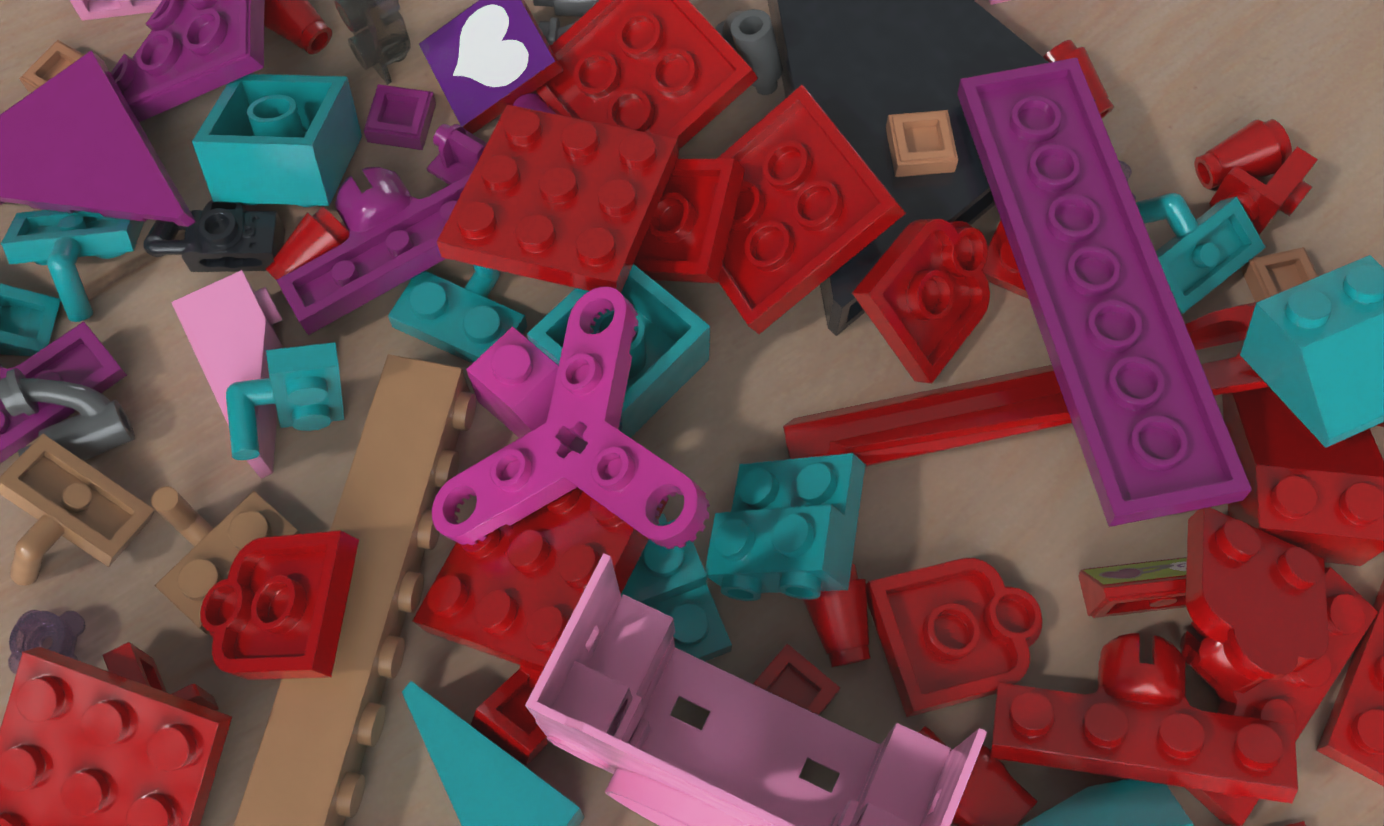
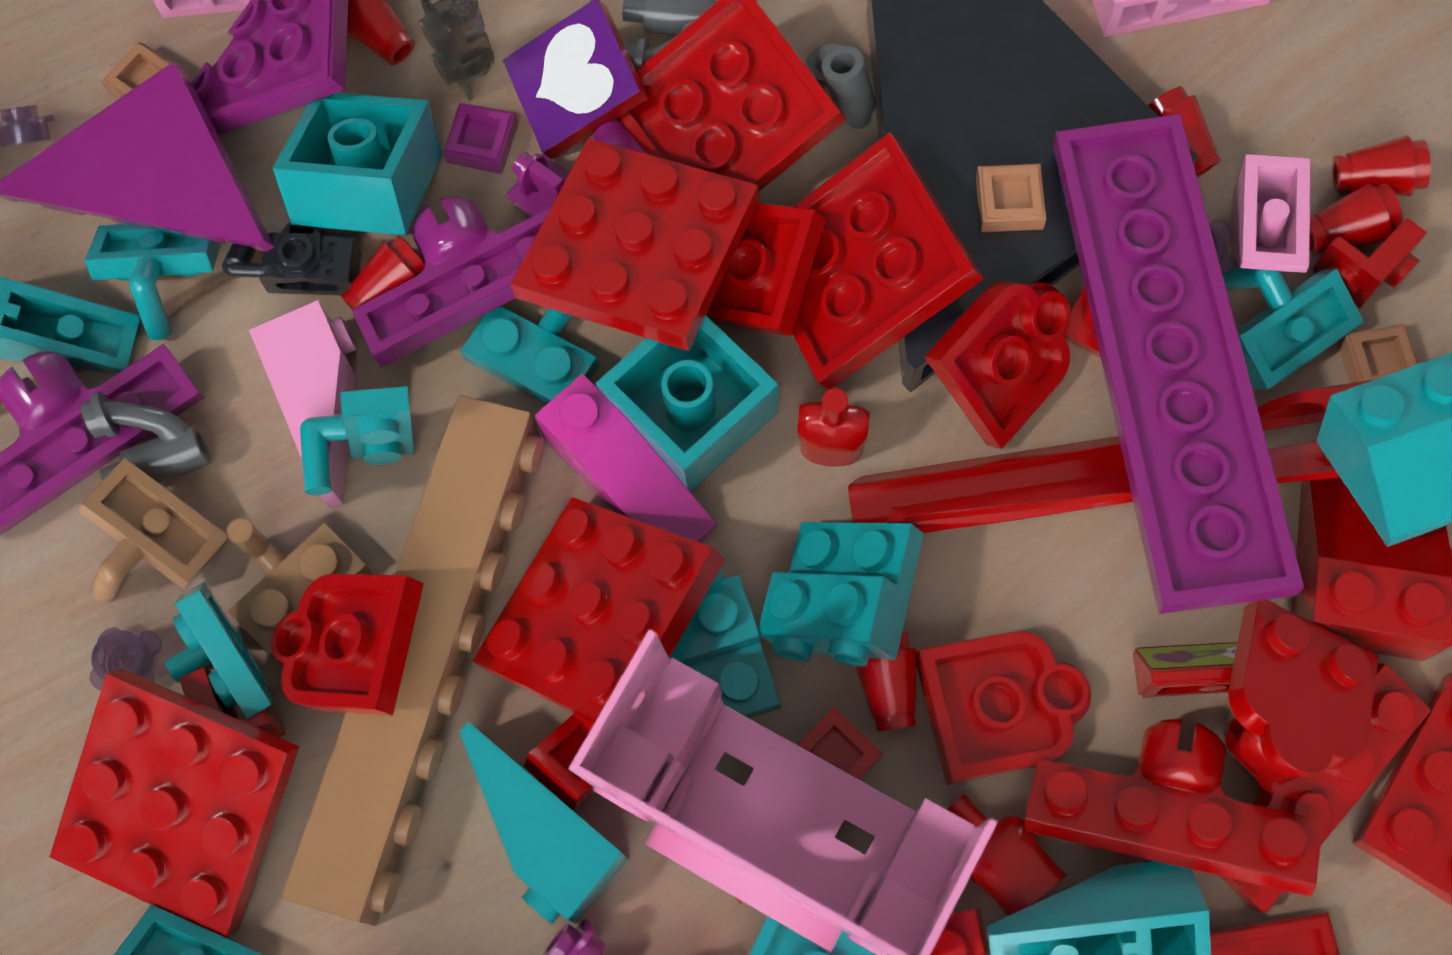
camera: 10 degrees right, 5 degrees up
(143, 617) = (217, 642): none -> teal plate
(610, 468) = (604, 519): dark pink piece -> none
(765, 371) = (832, 430): none -> red piece
(1170, 147) = (1272, 214): none -> bright pink slope
(1278, 99) = (1396, 162): none -> red cone

